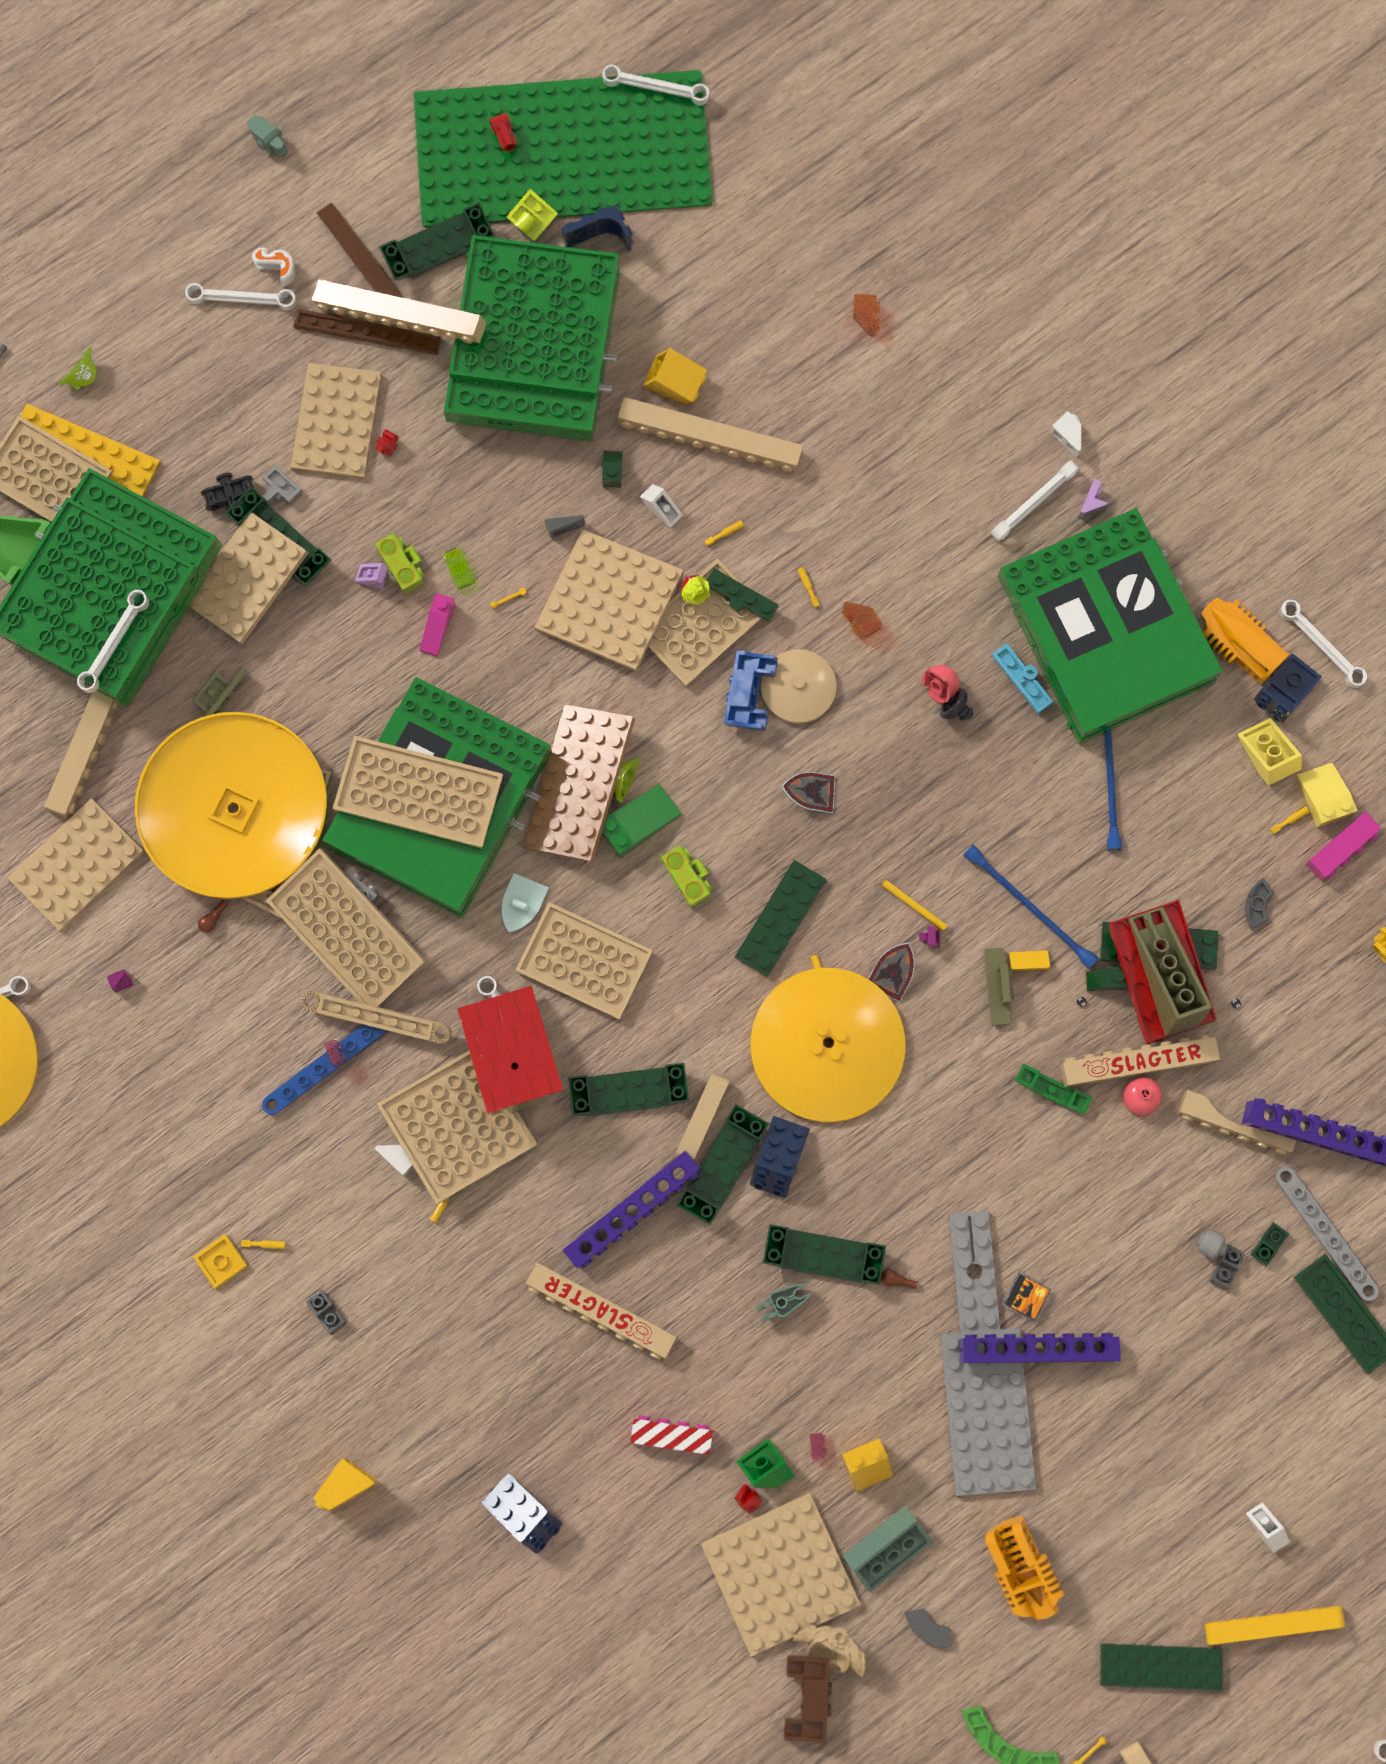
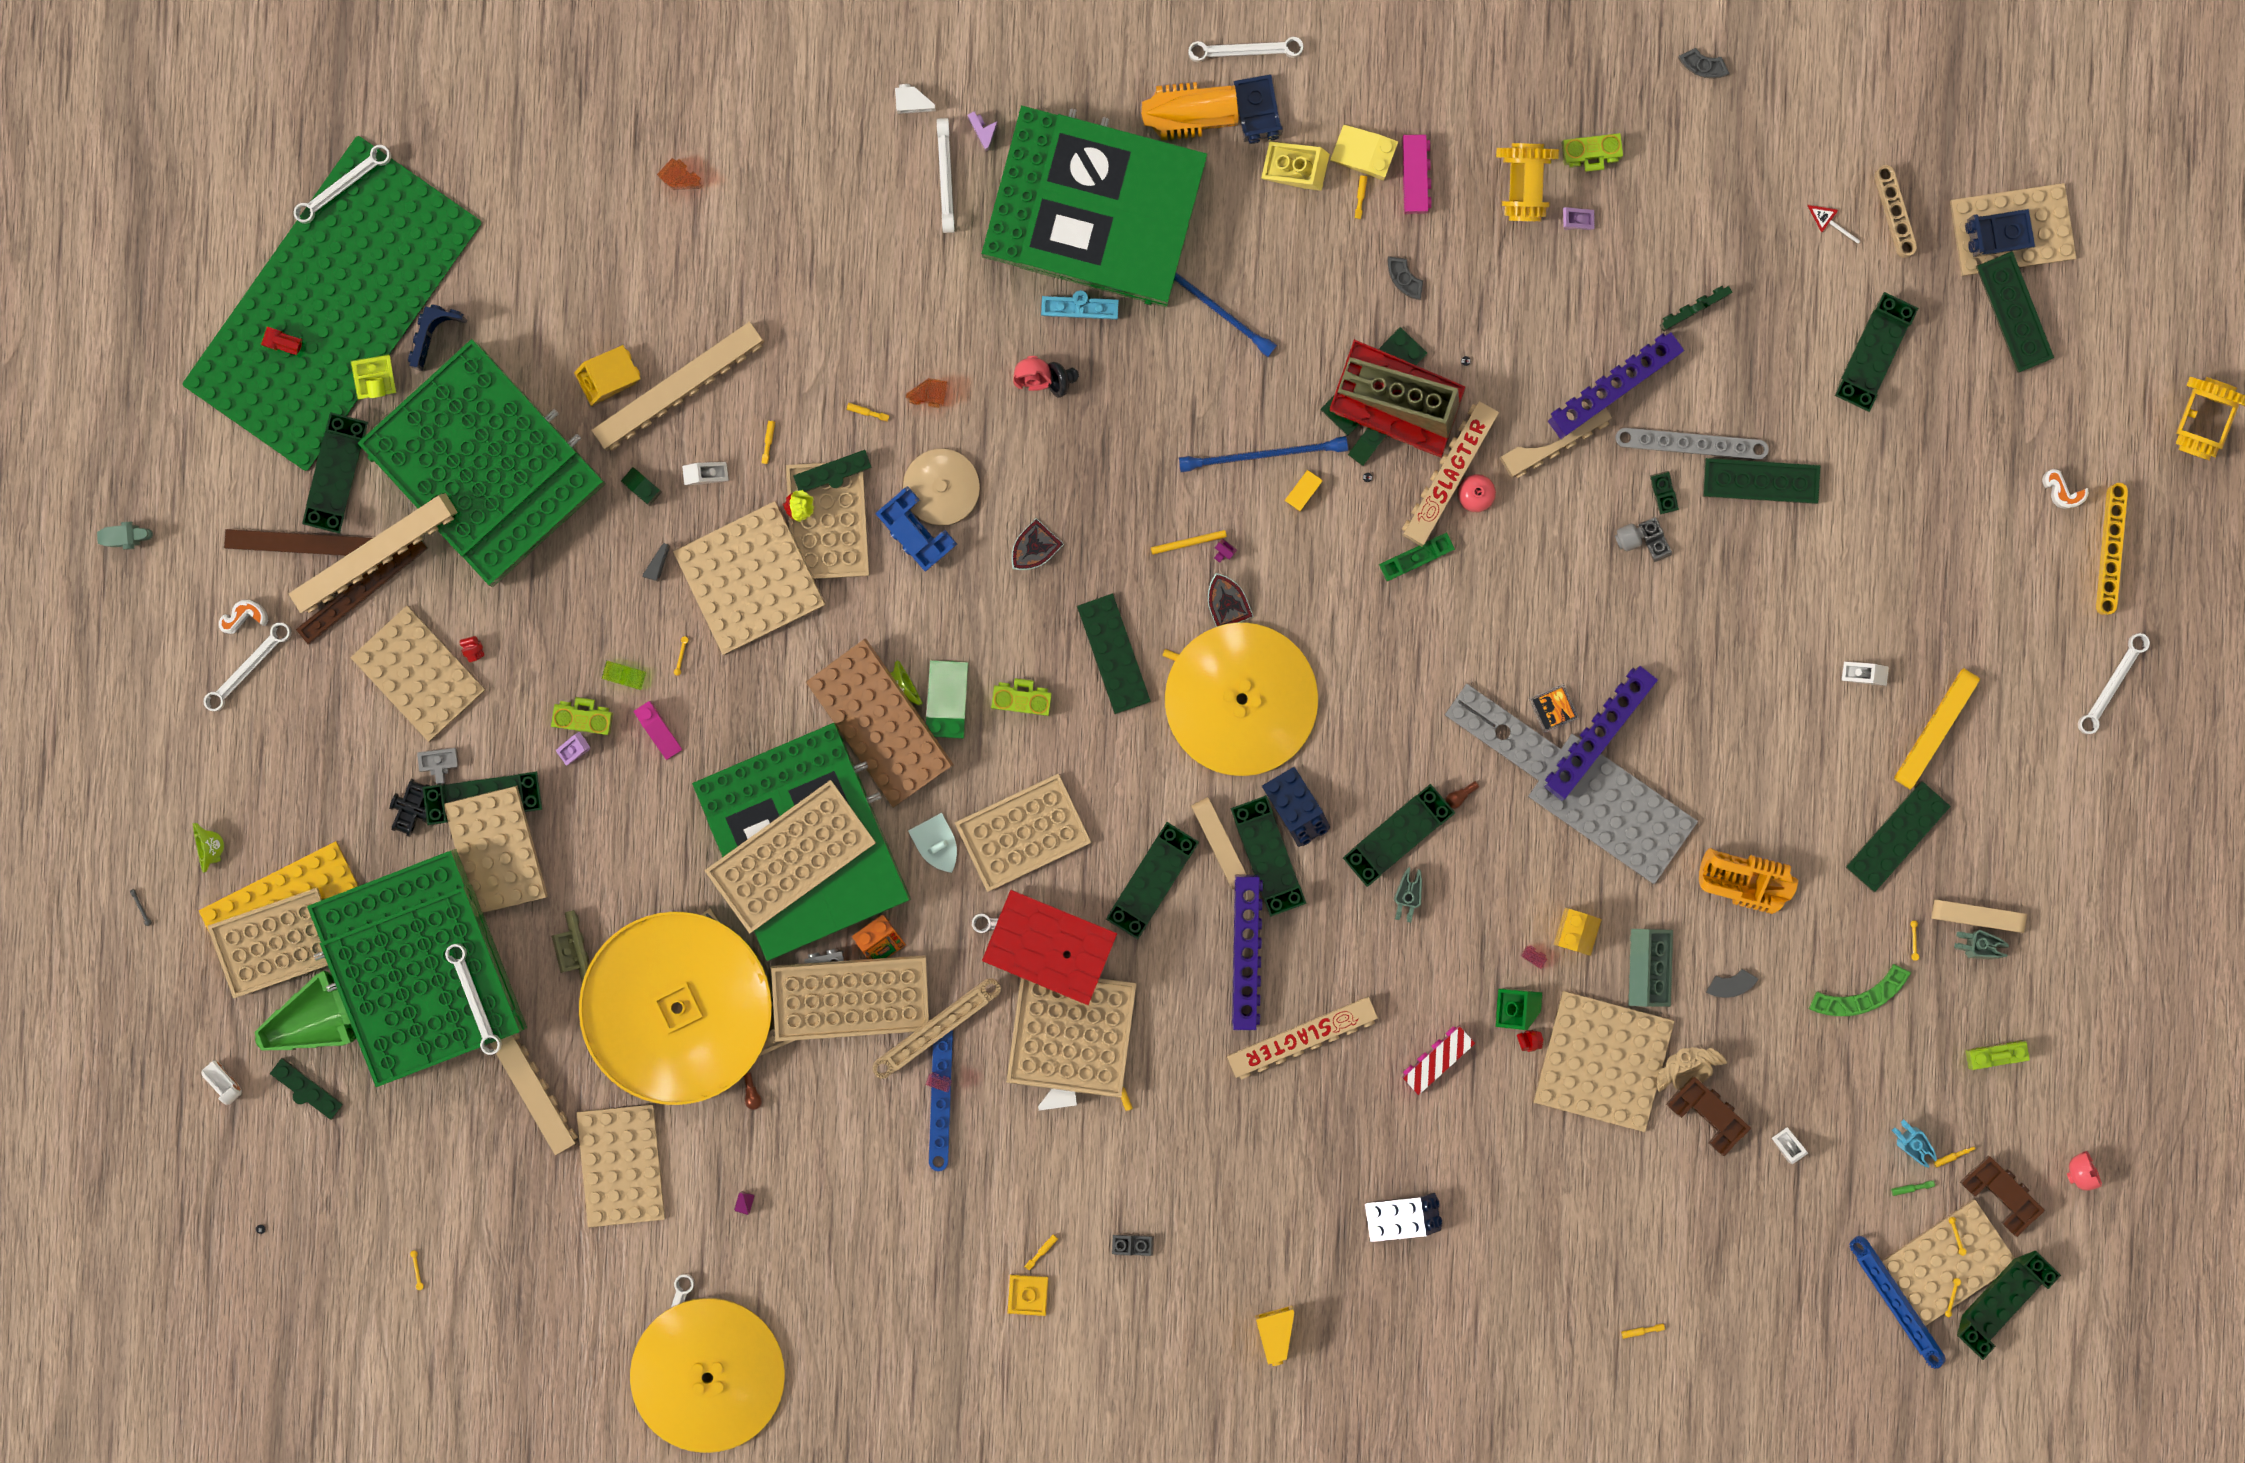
camera: 55 degrees left, 10 degrees up
(411, 917) = (878, 939): none -> orange slope
(998, 986) = (1303, 531): olive bracket -> none

